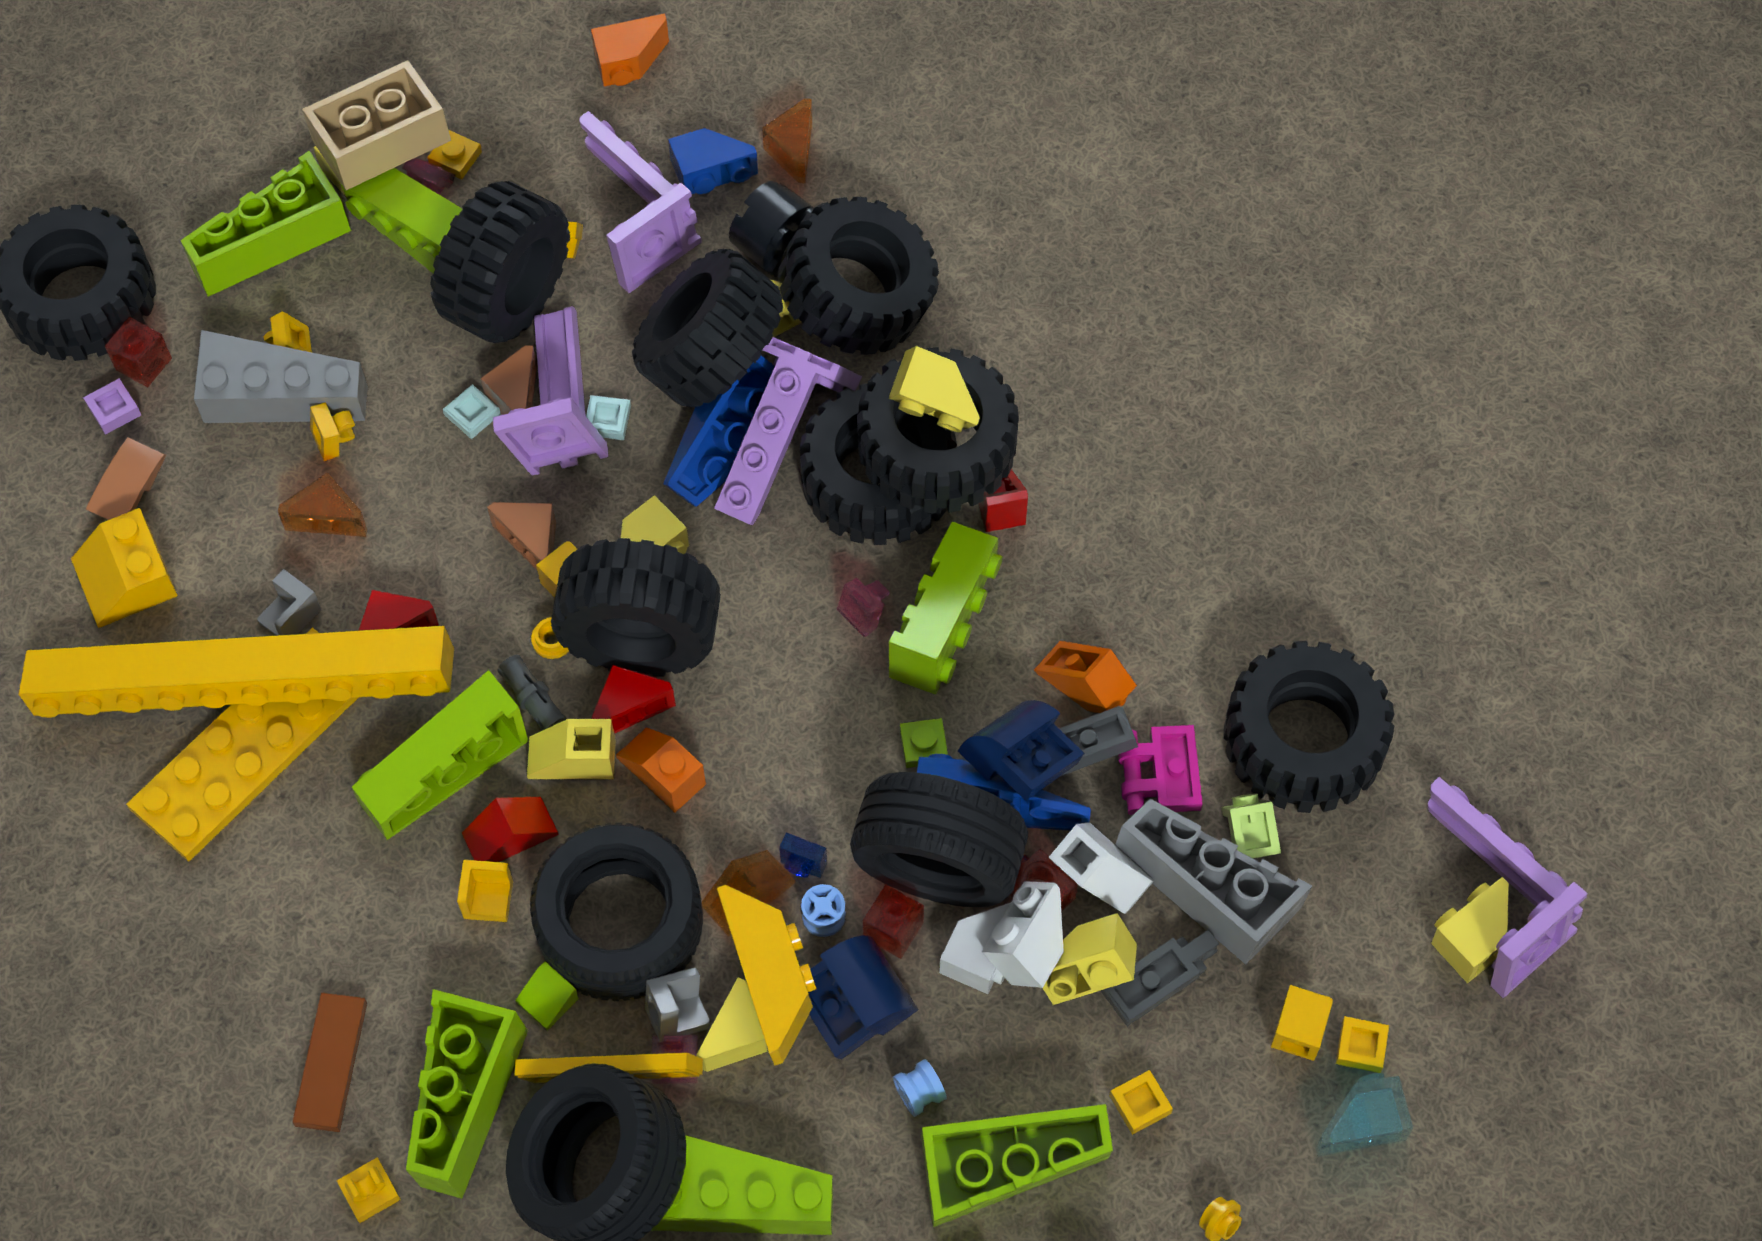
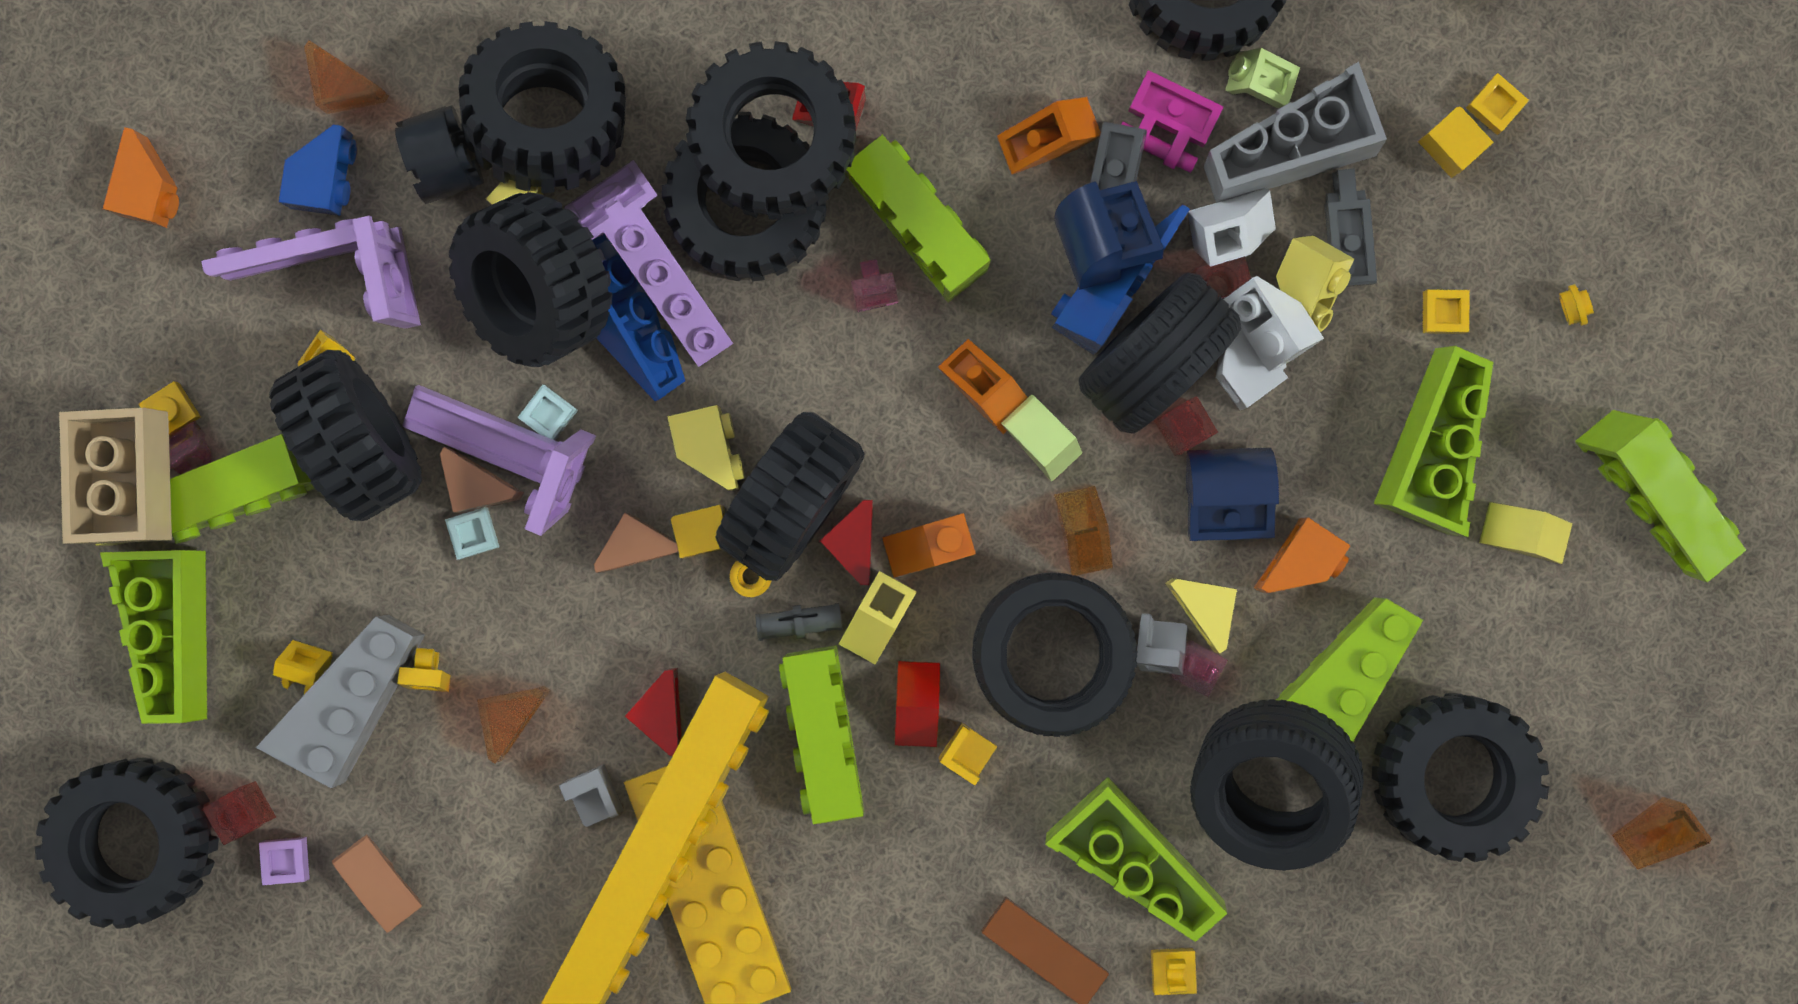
camera: 60 degrees left, 25 degrees up
(122, 569) = (470, 924): yellow slope -> none
(547, 996) = (1087, 749): lime slope -> none
(641, 1066) = (1192, 731): yellow tile -> none
(770, 968) = (1187, 555): yellow wedge -> none
(802, 856) = (1084, 470): clear blue plate -> none
(810, 802) = (1042, 437): none -> yellowish green slope
(823, 901) = (1146, 475): light blue wheel -> none
(829, 740) = (983, 383): none -> orange slope
(829, 1094) = (1305, 558): none -> orange slope
(919, 1087) = (1337, 483): light blue wheel -> none
(922, 740) = (1030, 308): lime plate -> none
(934, 387) = (749, 115): light yellow slope -> none
(1368, 1117) = (1559, 139): clear light blue slope -> none

